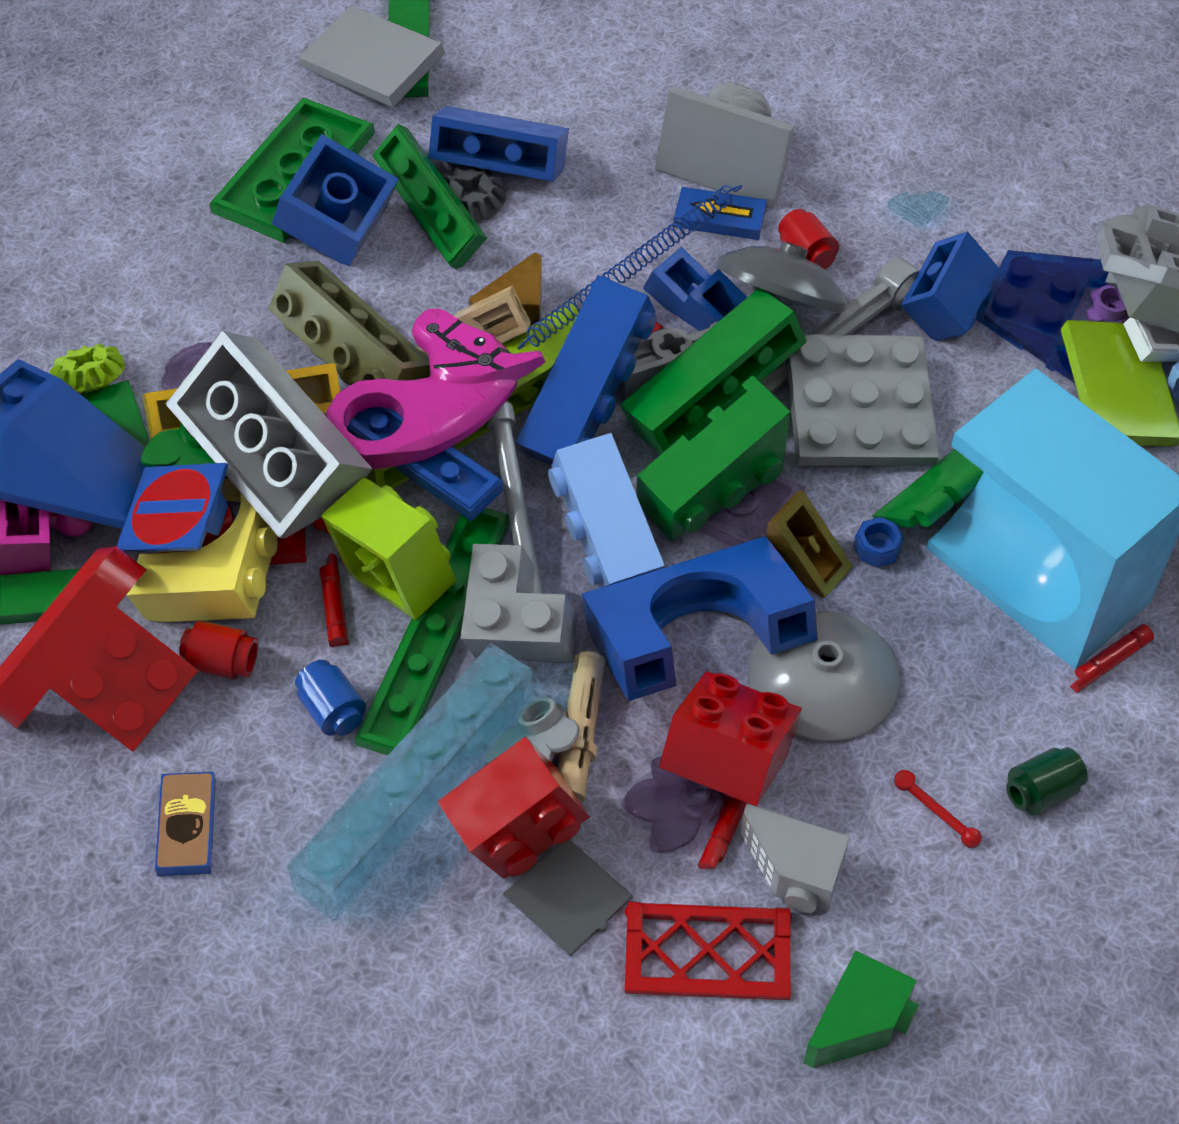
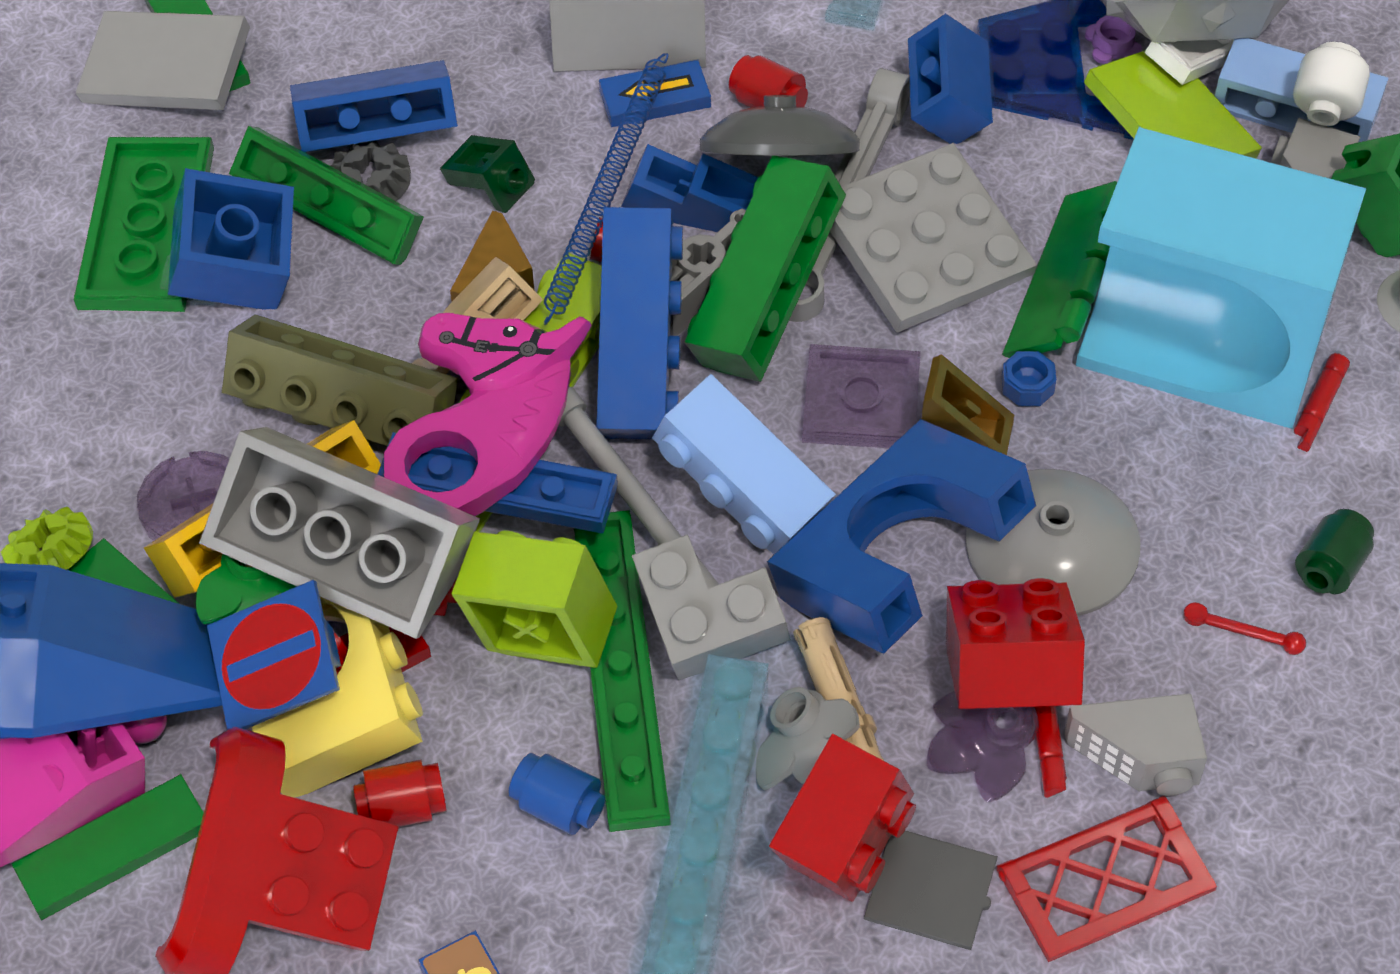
camera: 25 degrees left, 0 degrees up
(333, 602) = (491, 688): red wheel -> none
(562, 223) = (490, 166): none -> dark green bracket
(717, 465) = (831, 361): green wedge -> none
(862, 1012) = (1299, 865): green slope -> none

